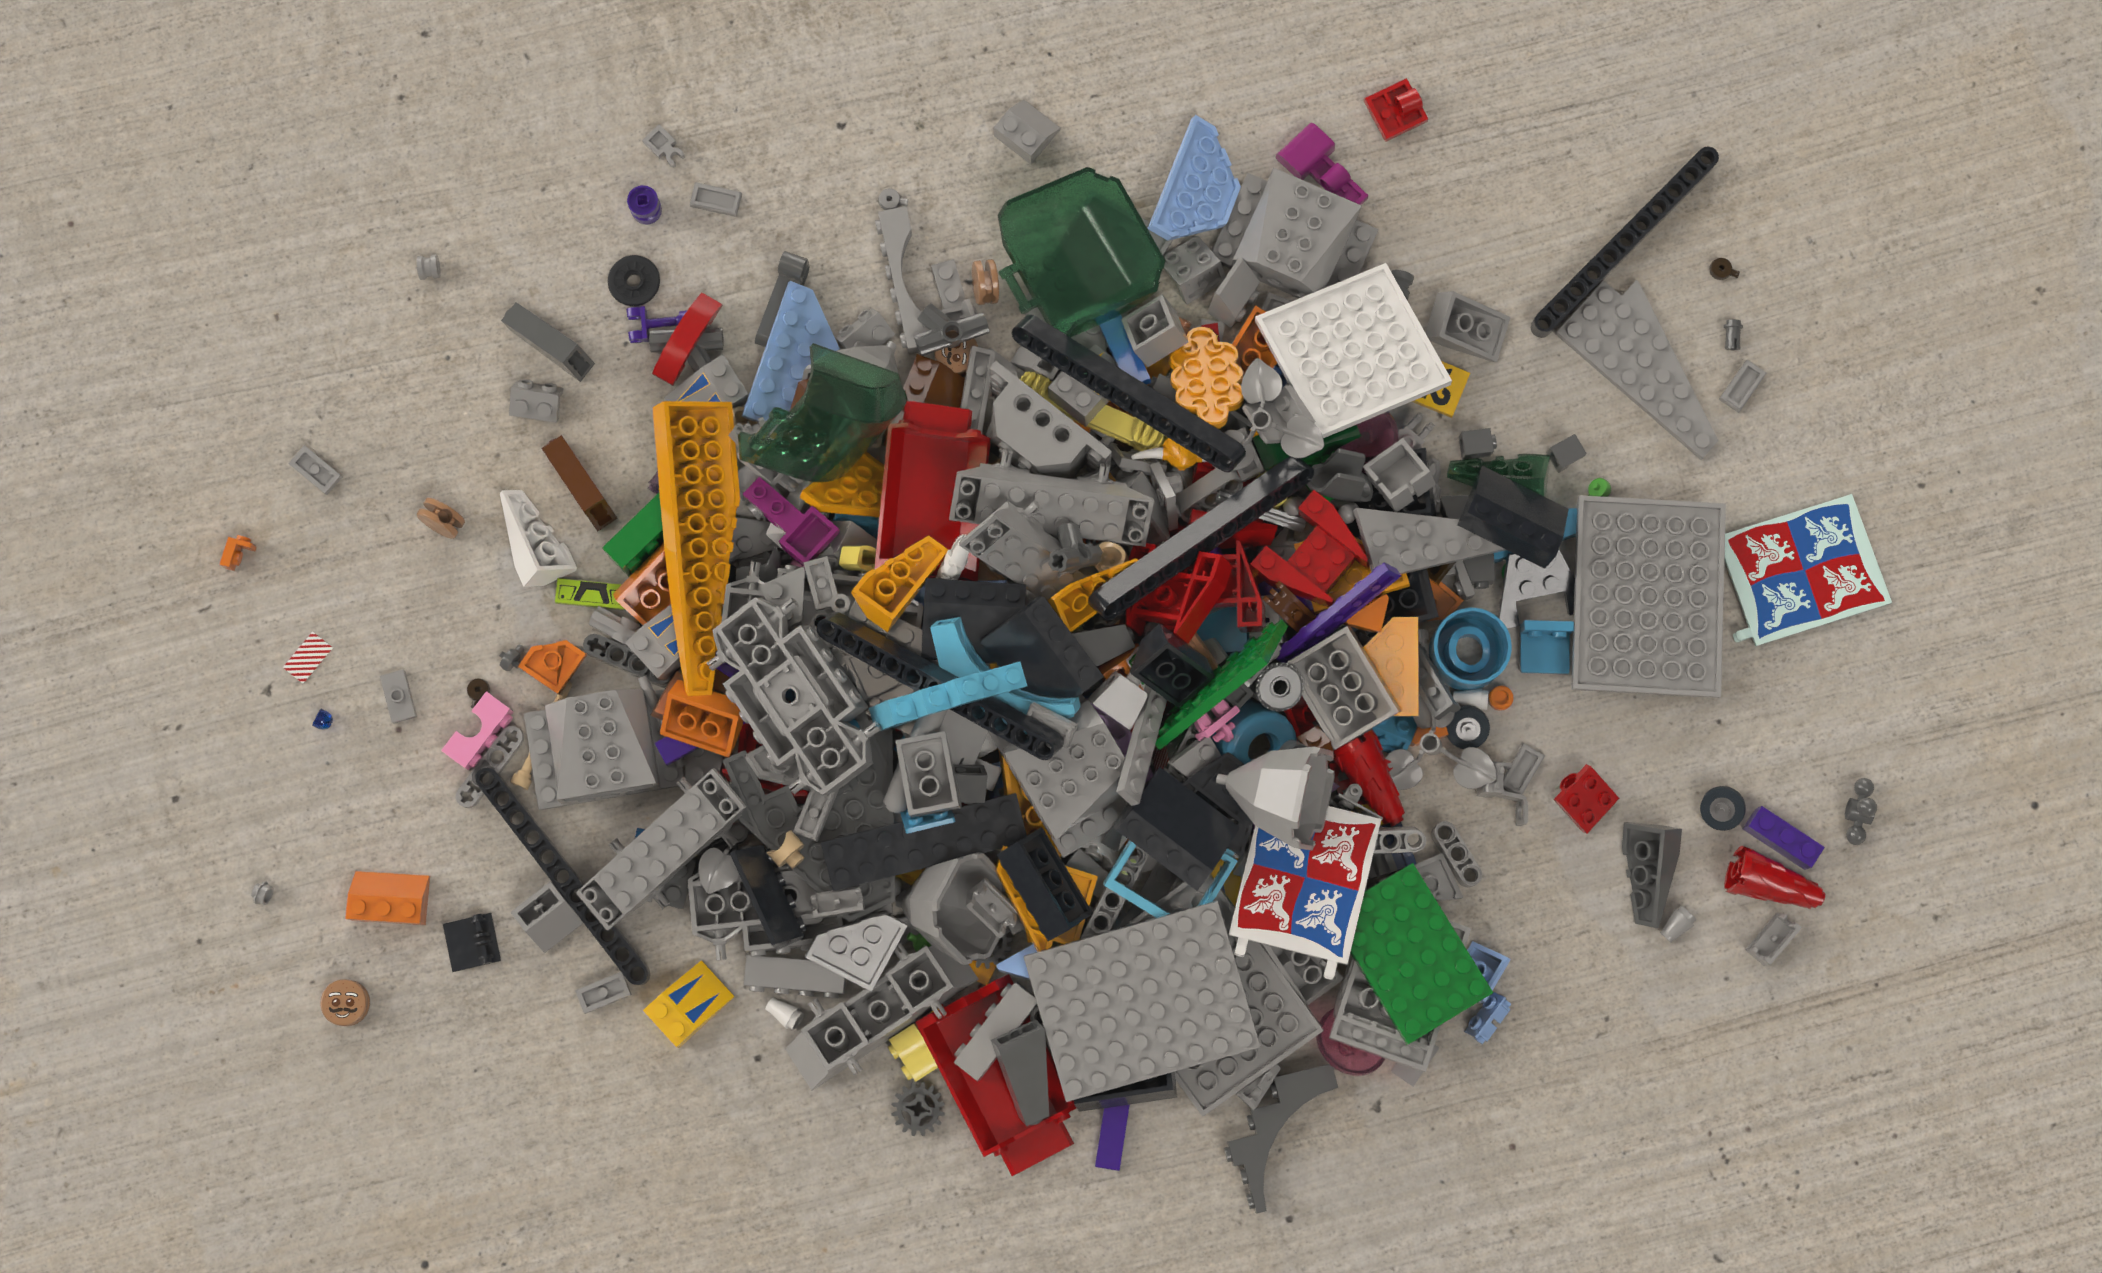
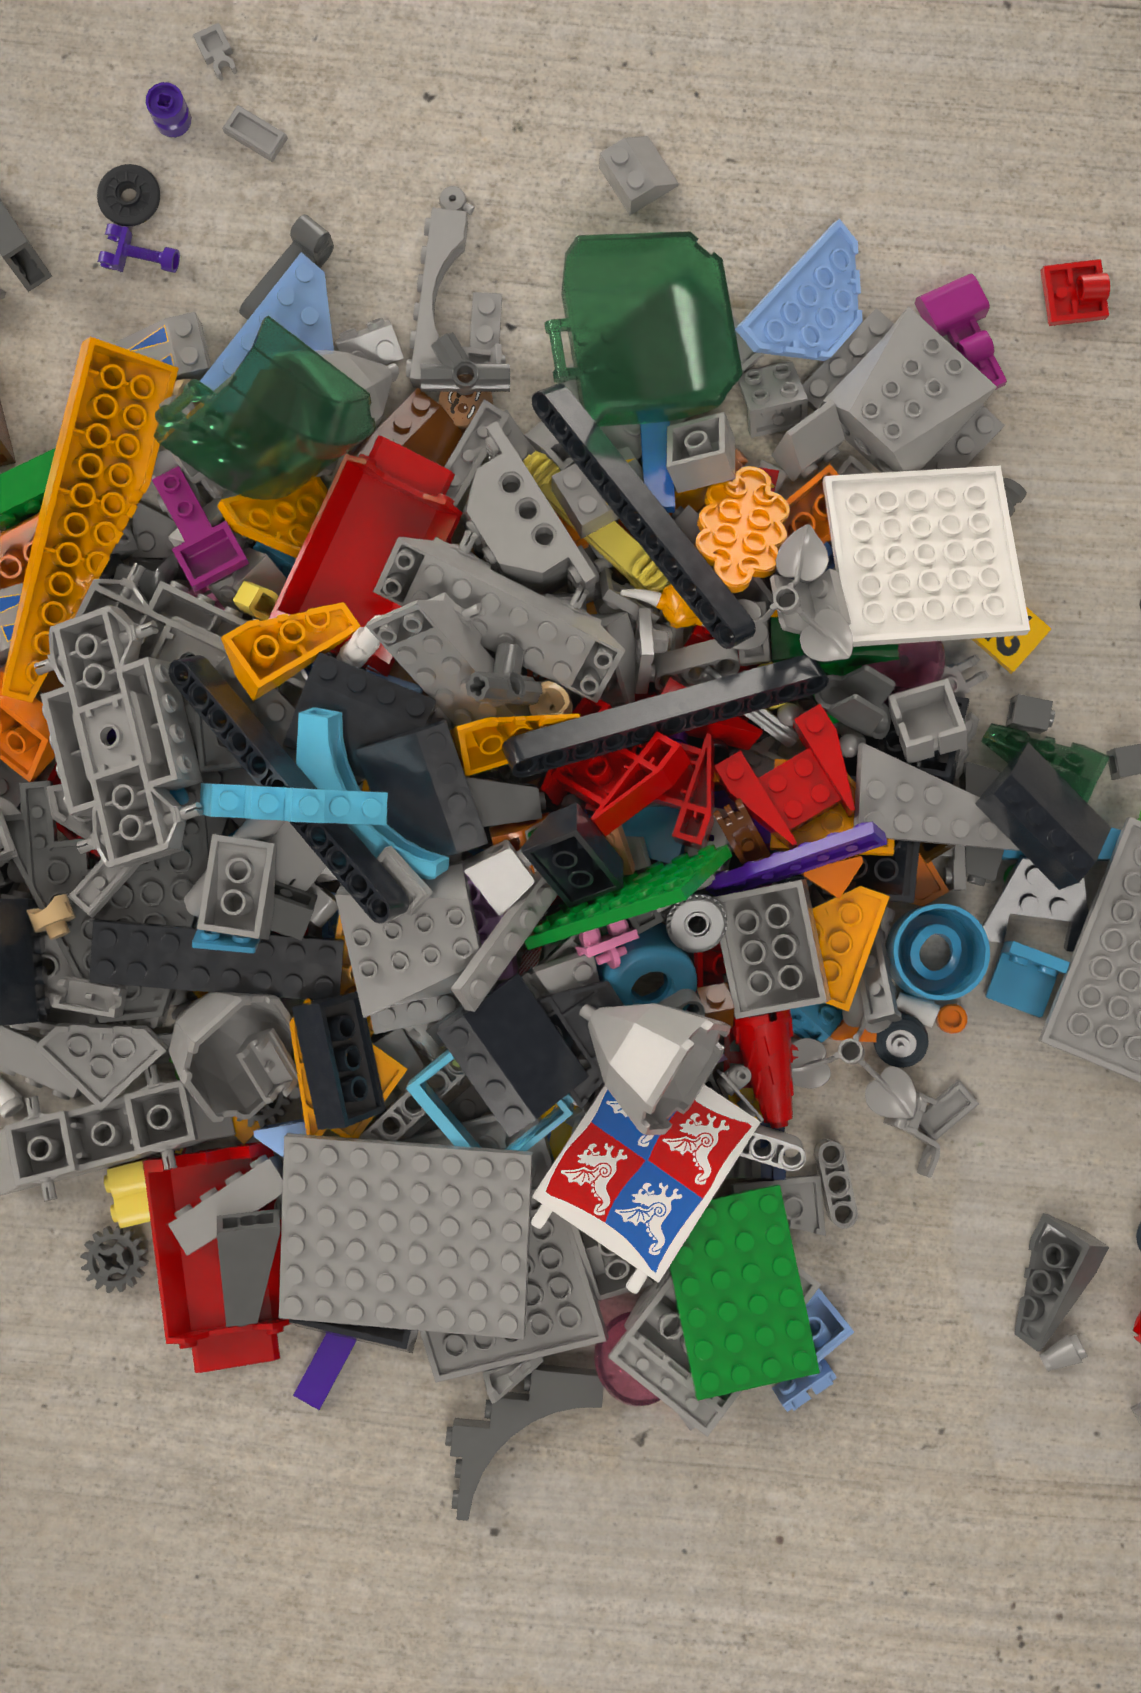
camera: 20 degrees right, 5 degrees up
(685, 338) = (159, 277): red slope -> none
(710, 340) = (167, 298): dark grey piece -> none
(783, 589) = (165, 610): light grey wing -> none
(823, 585) = (203, 619): light grey hinge -> none
(985, 282) = (527, 332): medium nougat head -> none
(1467, 326) = (1067, 572): light grey slope -> none
(1585, 798) = (1008, 1170): red plate -> none

